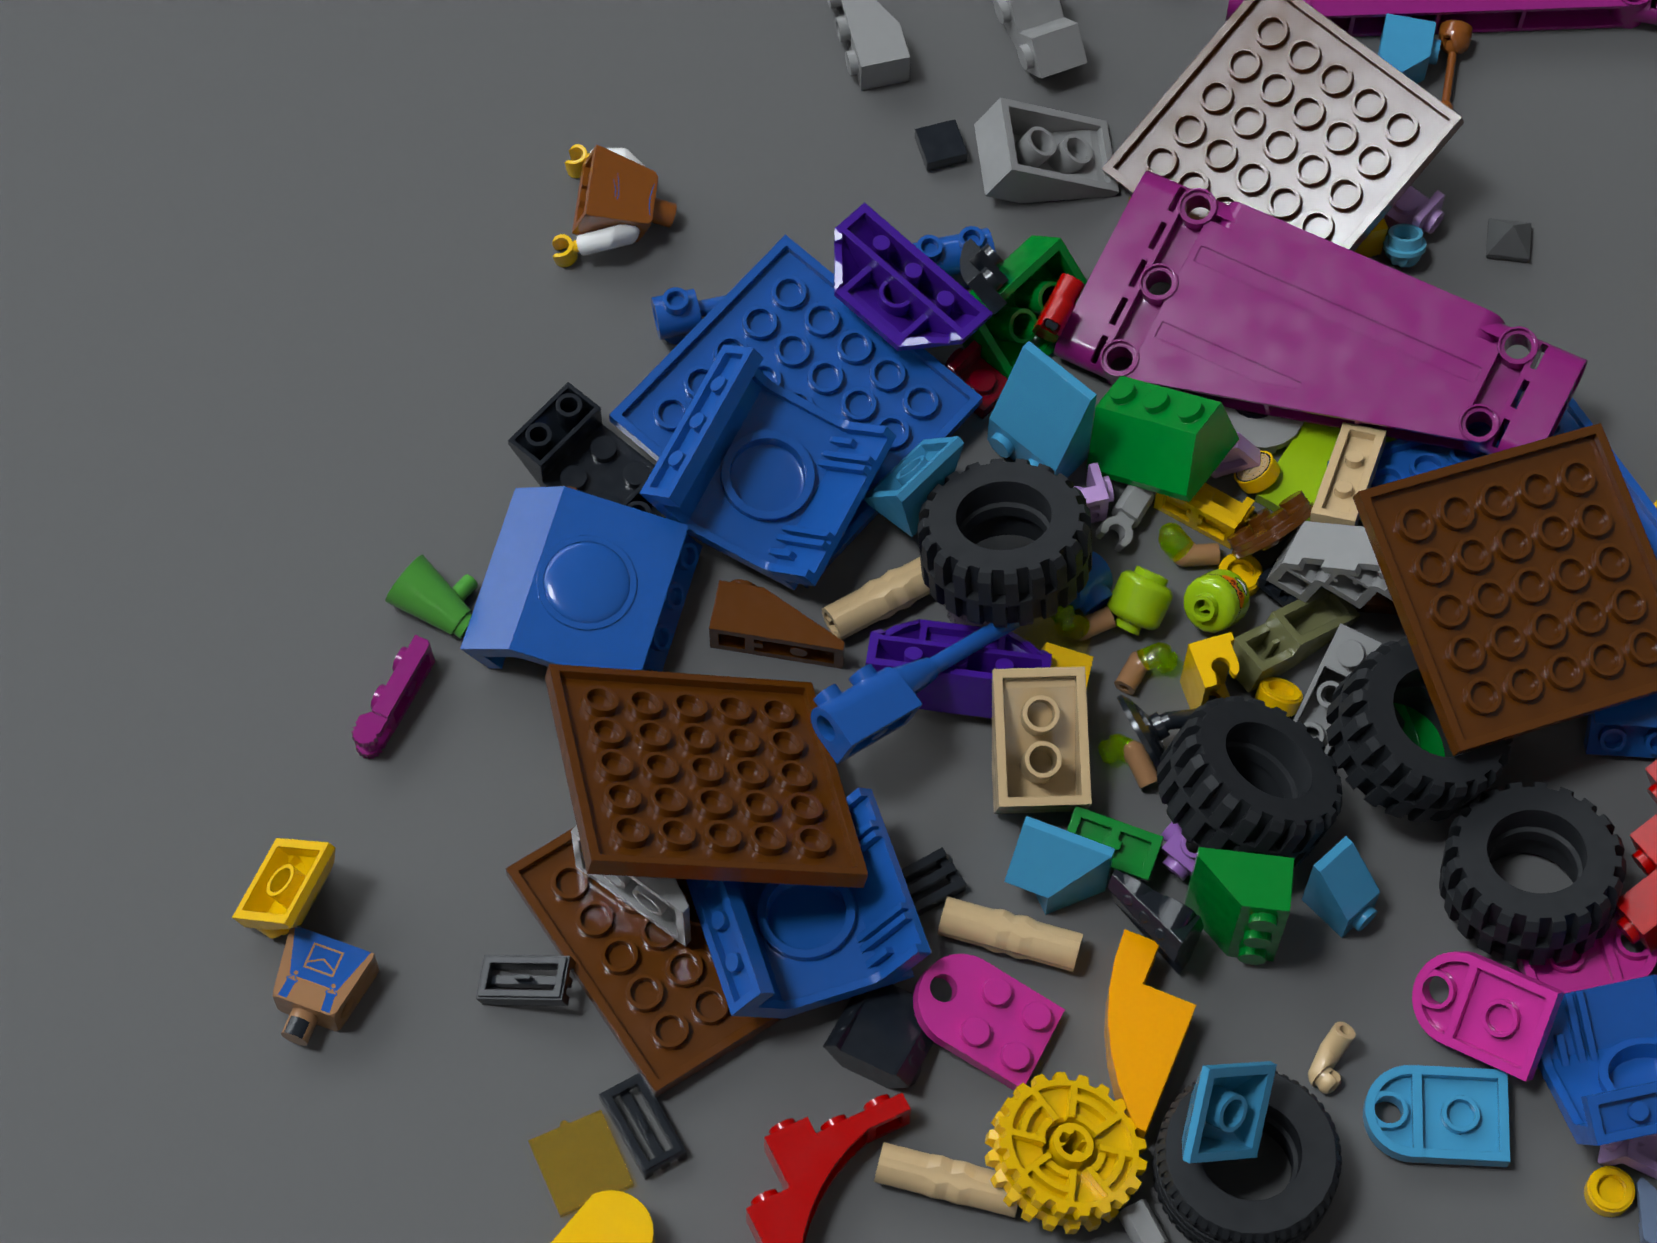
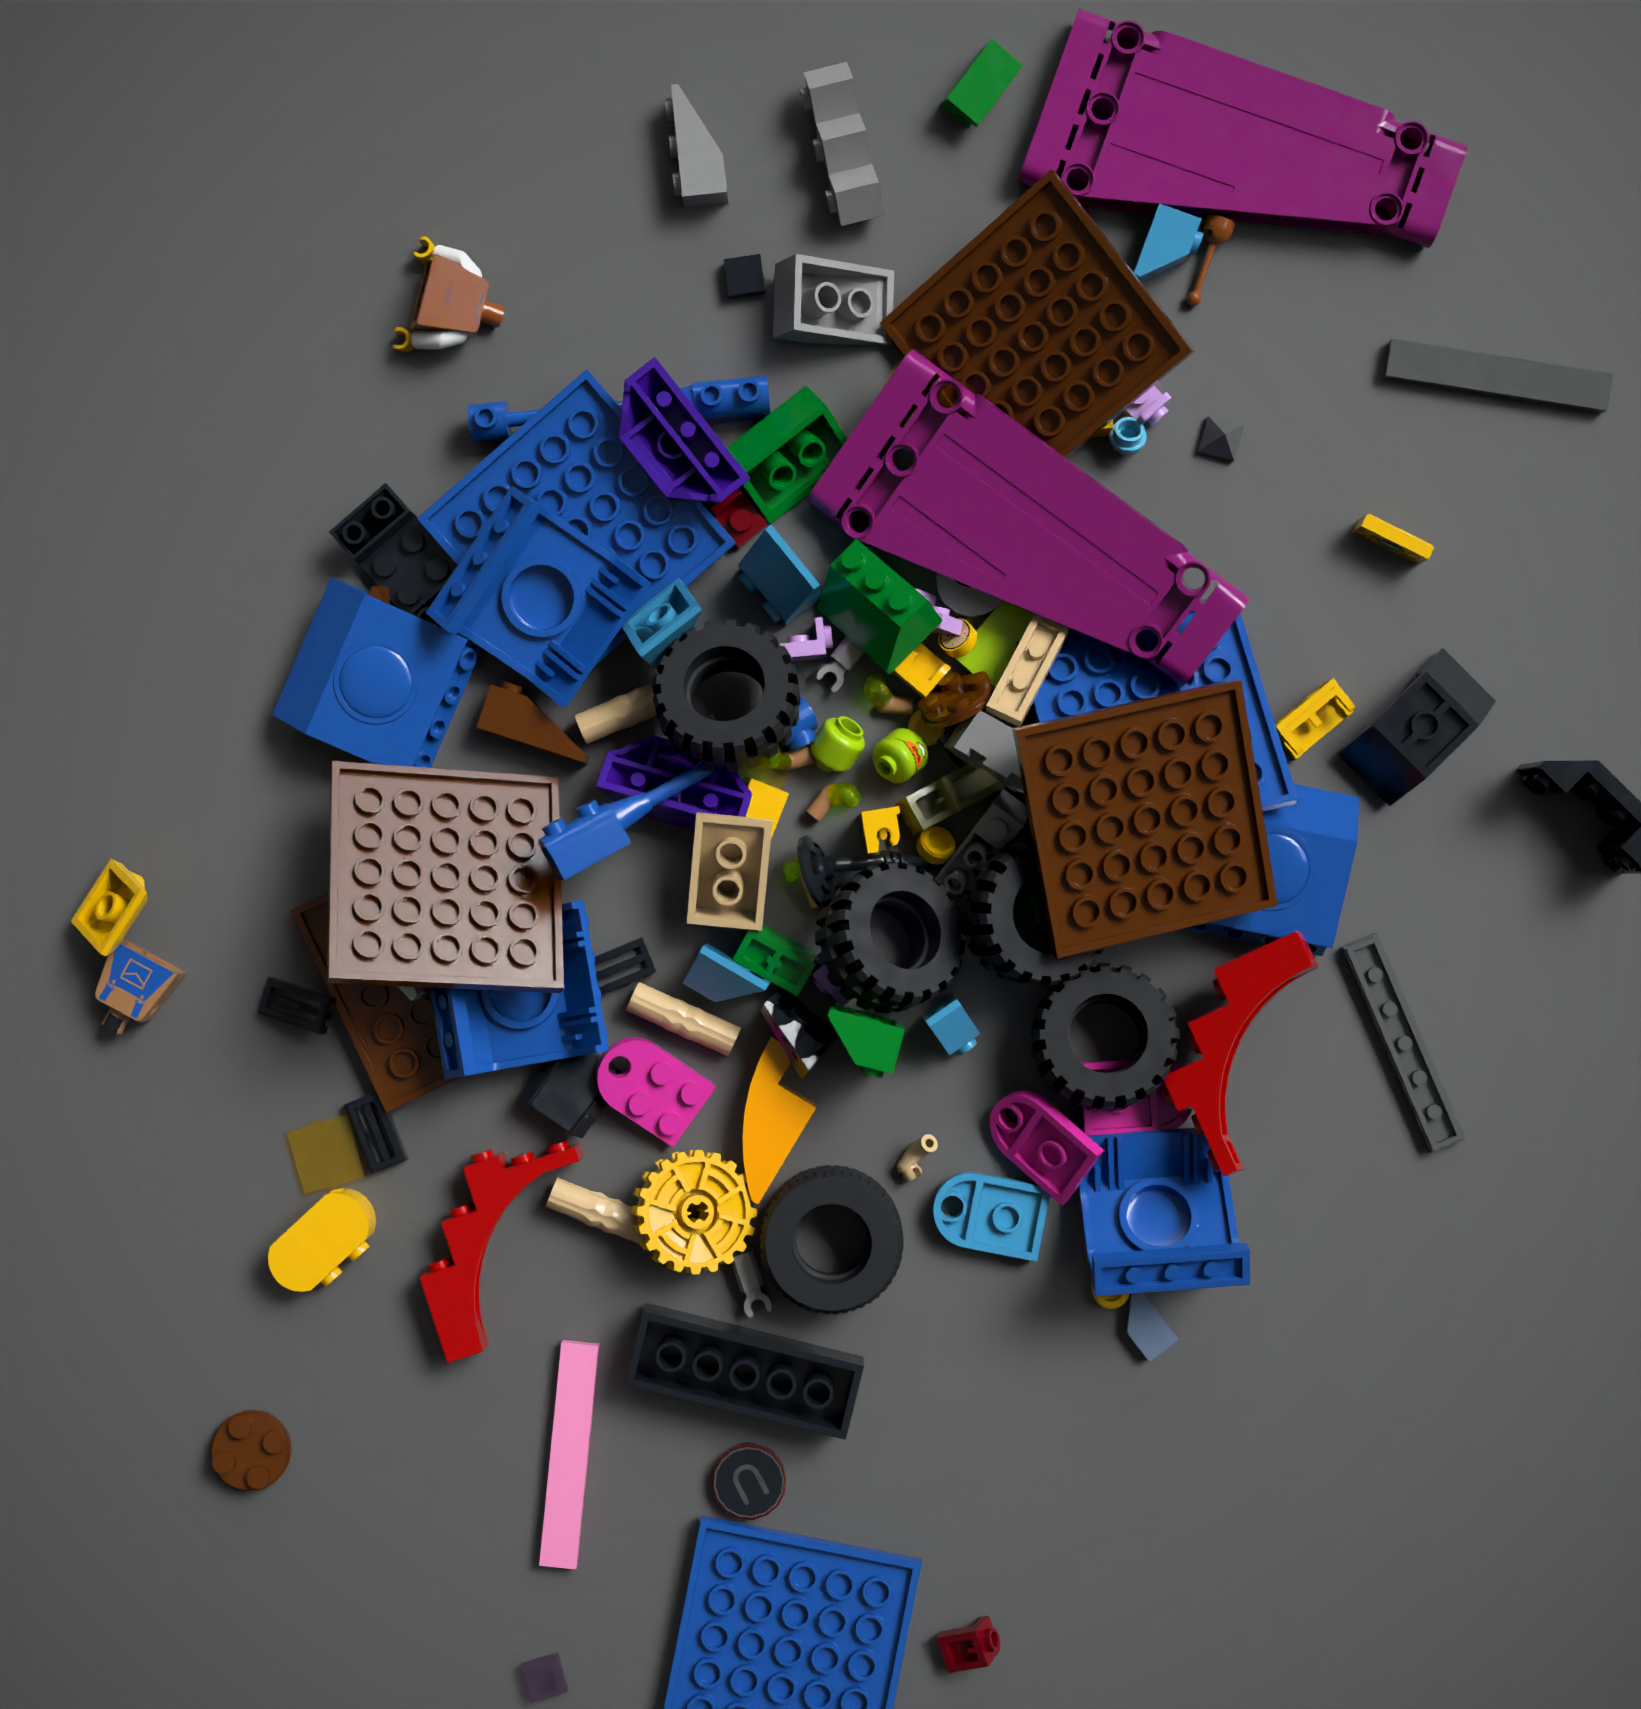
camera: 15 degrees right, 25 degrees up
(393, 699) = (216, 747): magenta hinge -> none
(430, 598) = (256, 662): bright green piece -> none
(982, 273) = (748, 435): black slope -> none
(1058, 308) = (814, 466): red piece -> none
(1227, 1112) = (811, 1228): dark azure slope -> none

